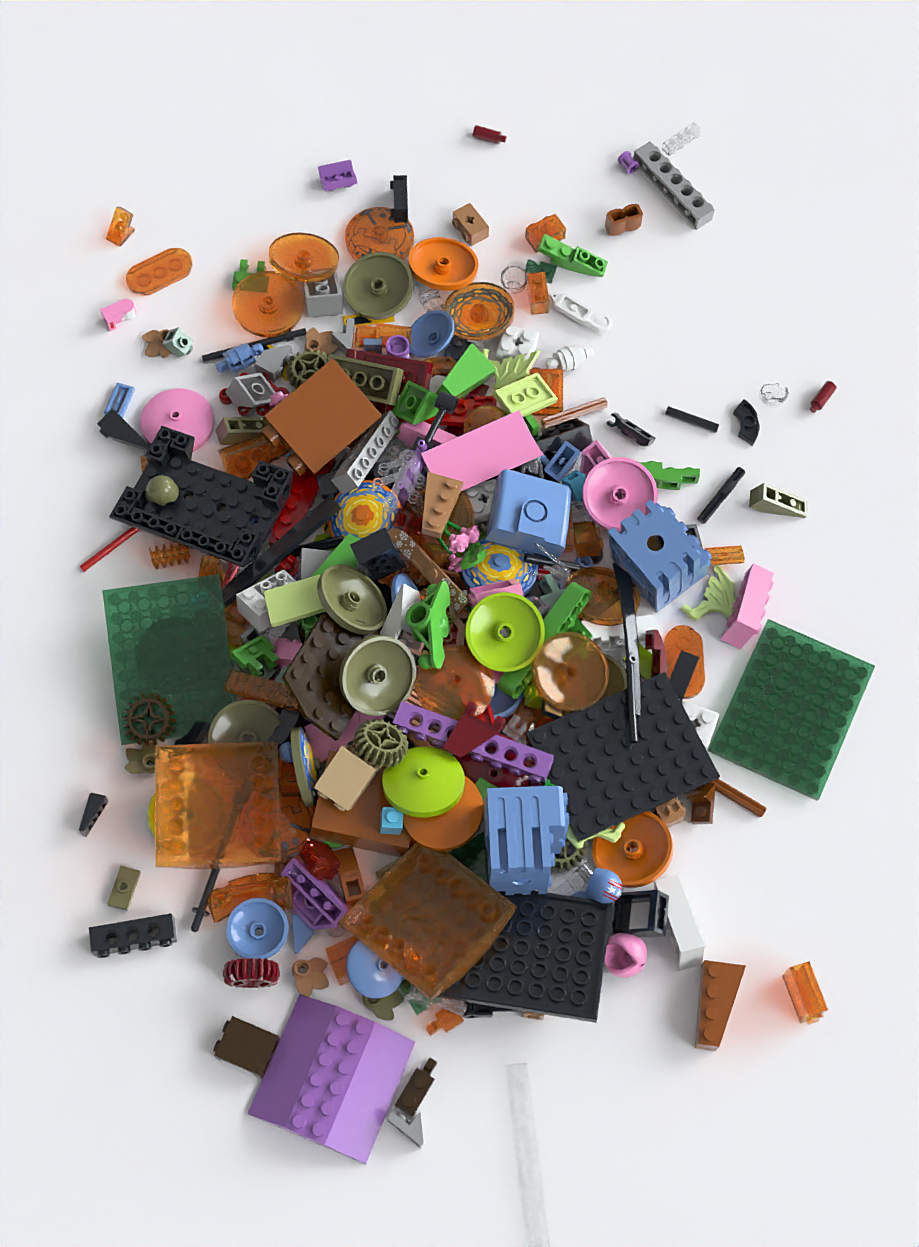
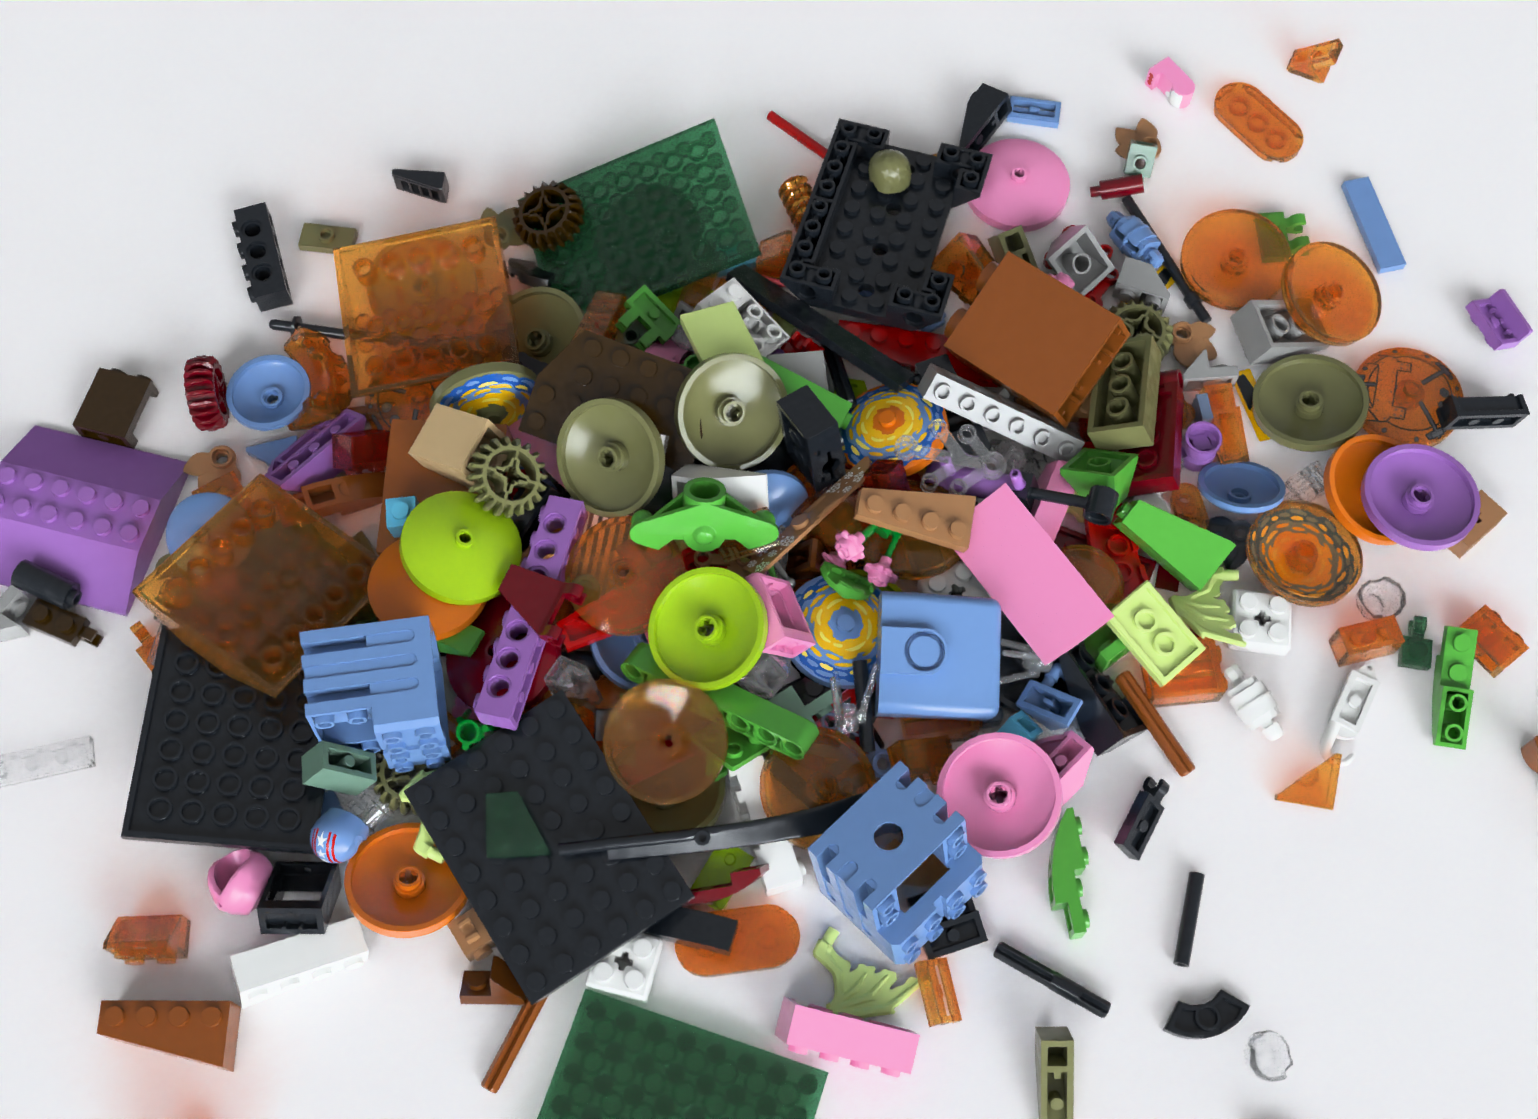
camera: 85 degrees right, 0 degrees up
(195, 359) = (1118, 187): none -> dark red cylinder
(252, 225) = (1373, 225): none -> medium blue tile
(389, 1093) = (46, 585): none -> black brick
(456, 241) = (1420, 497): none -> medium lavender dish
(561, 881) = (339, 768): none -> sand green brick
(614, 771) = (511, 828): none -> clear green wing
(622, 339) = (1316, 786): none -> clear orange tile
(656, 1016) = (149, 938): none -> clear orange slope

